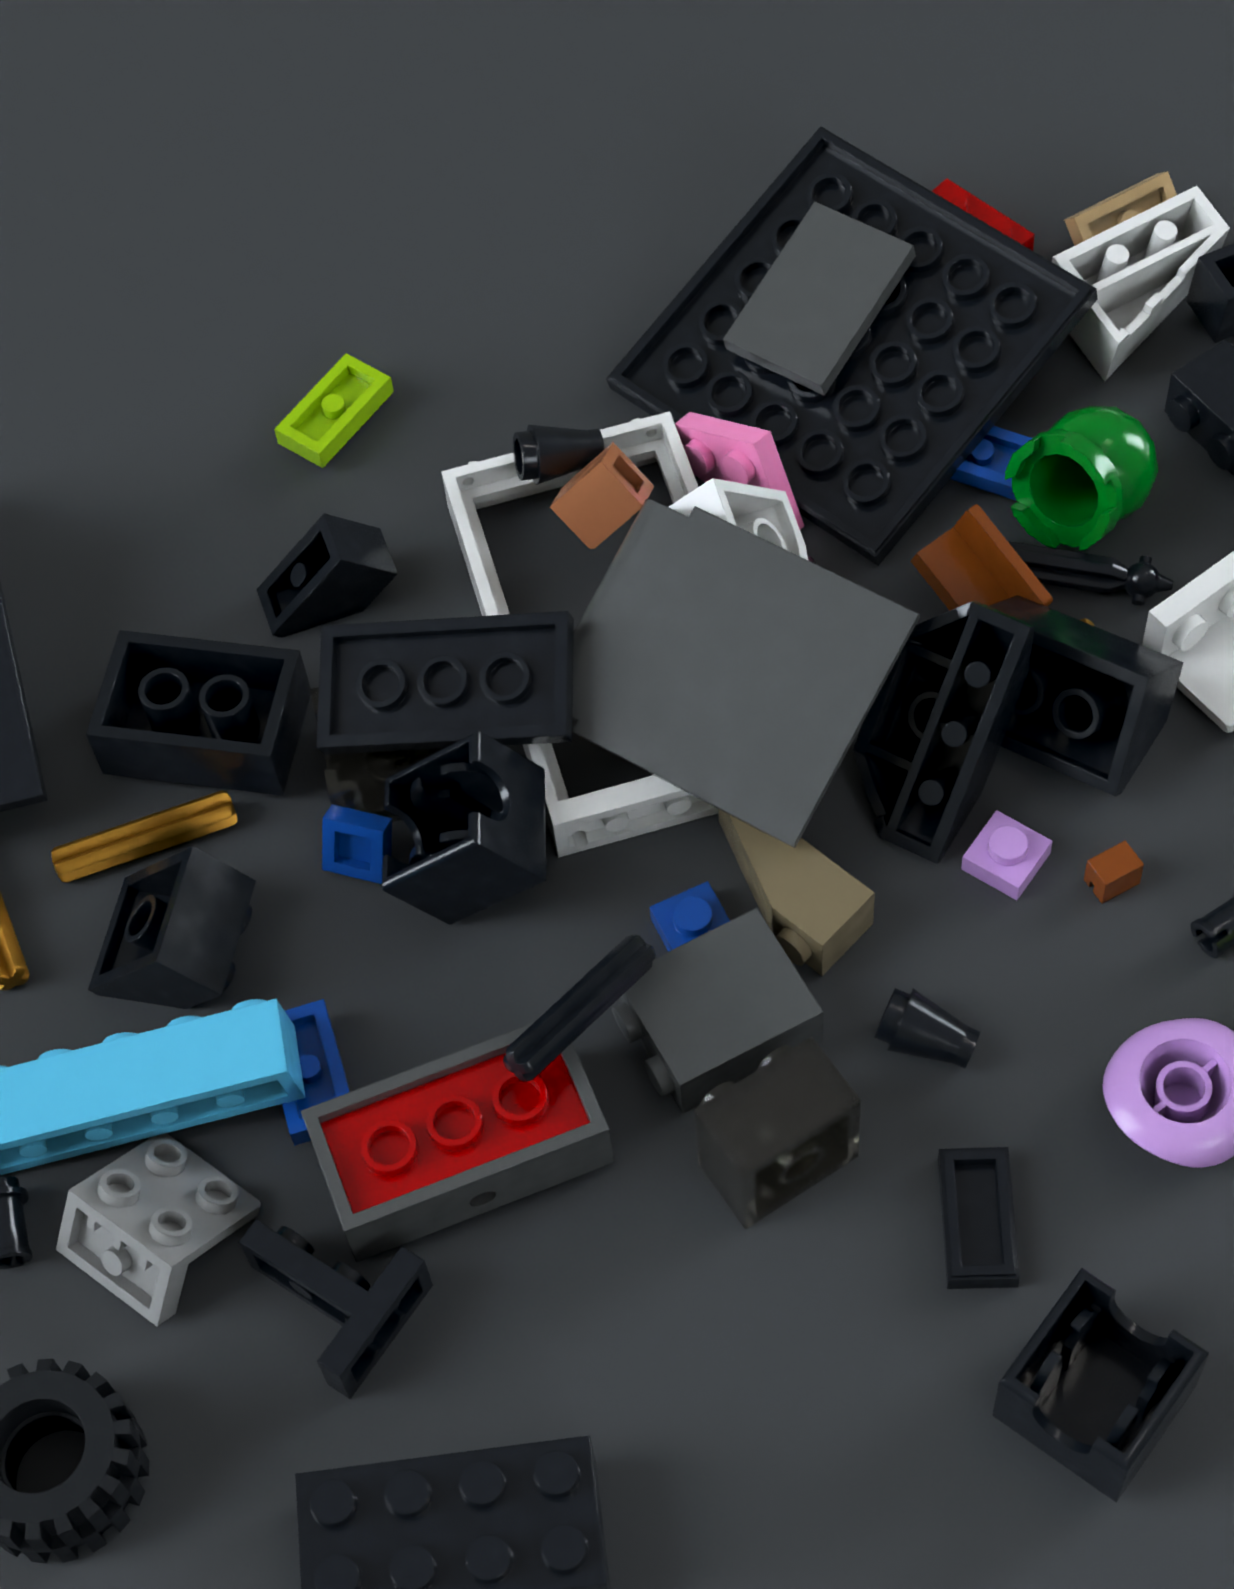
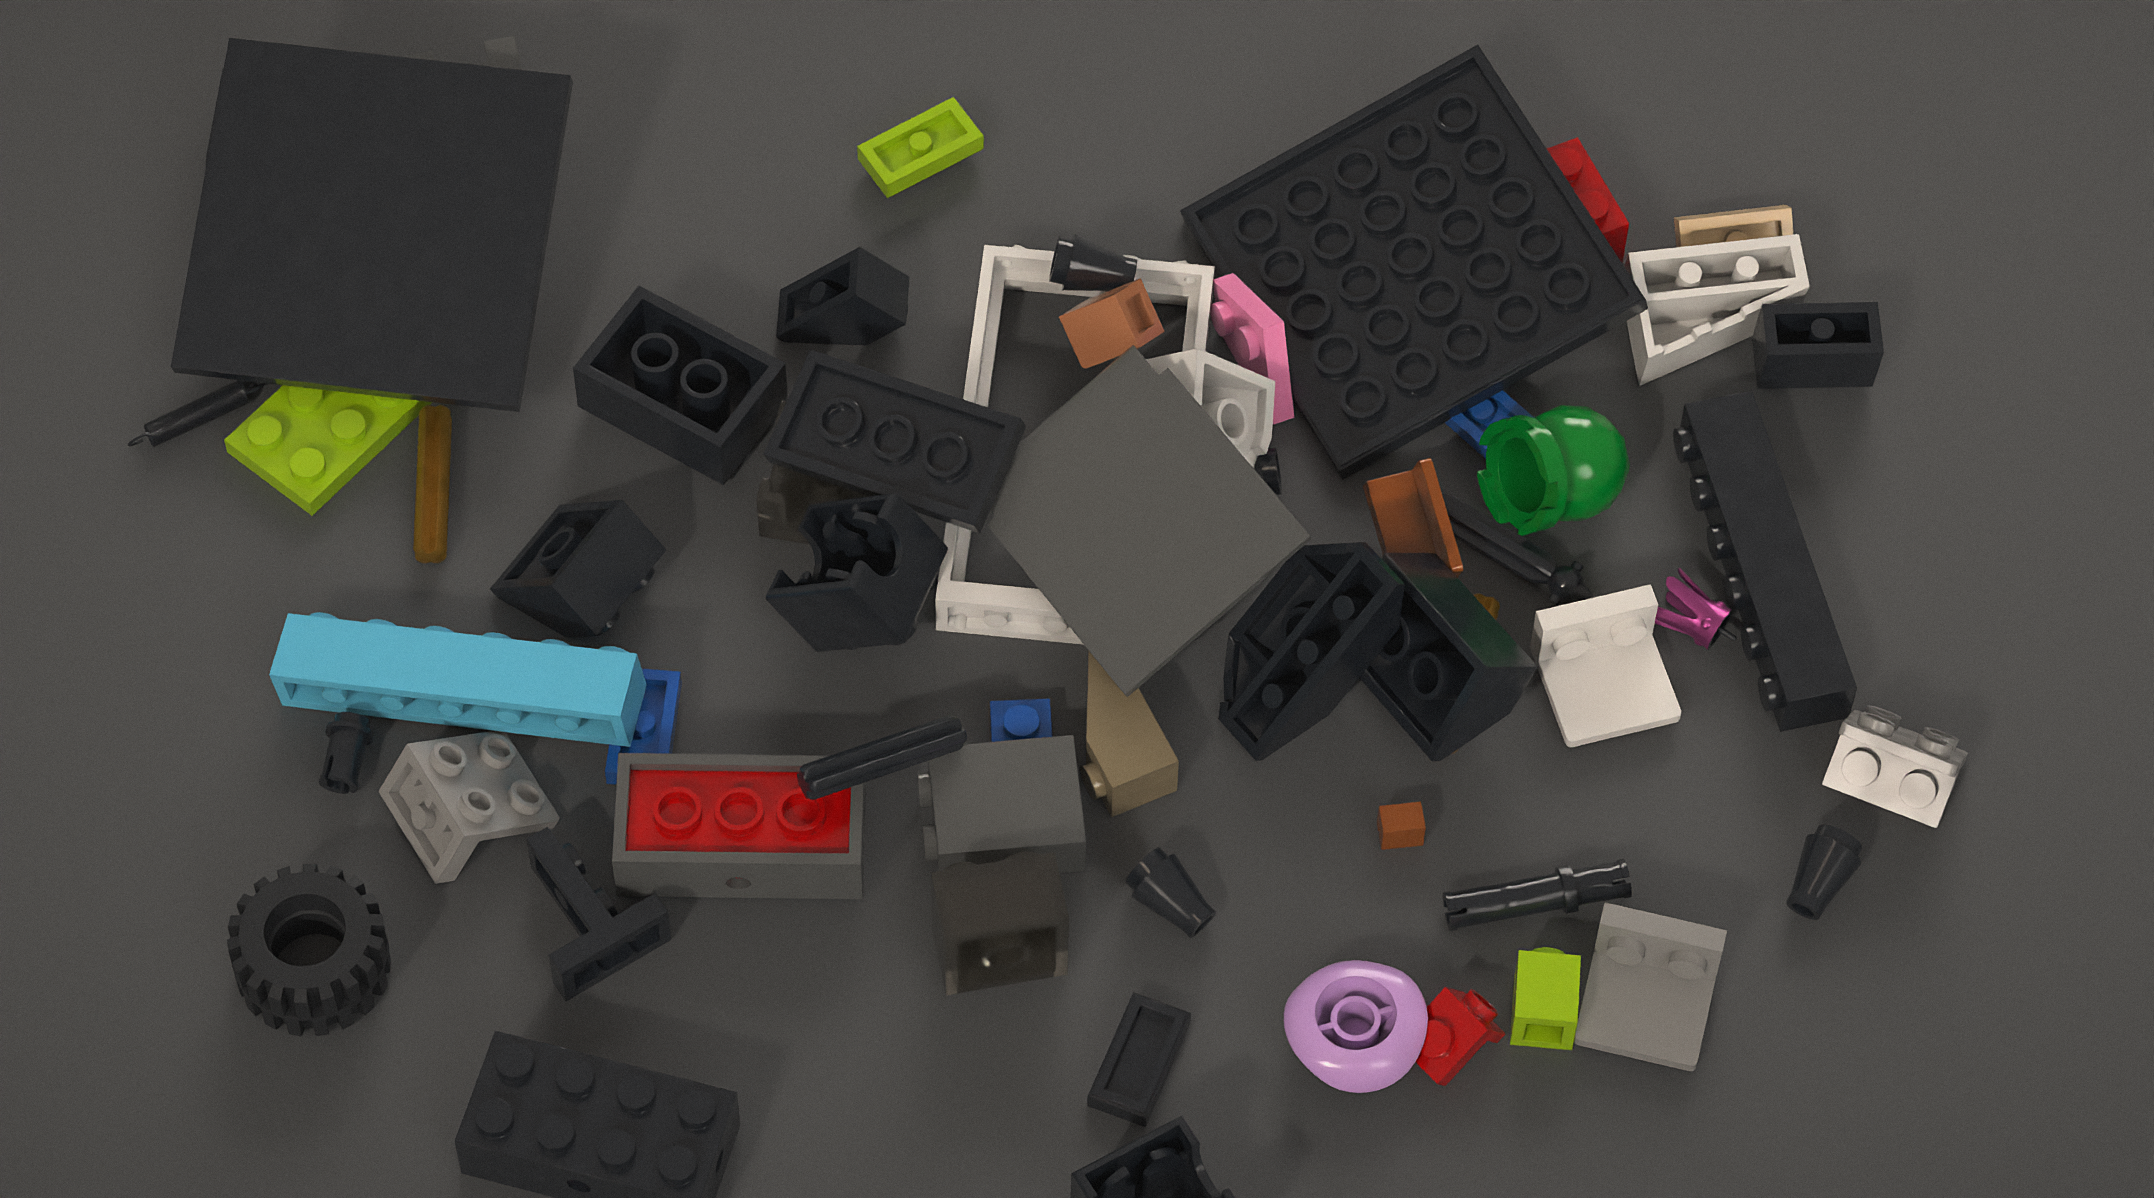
camera: 15 degrees right, 0 degrees up
(144, 836) = (590, 475): pearl gold axle -> none
(355, 843) = (764, 548): blue plate -> none
(819, 298) = (1397, 210): dark grey tile -> none
(1006, 855) = (1318, 776): lavender plate -> none

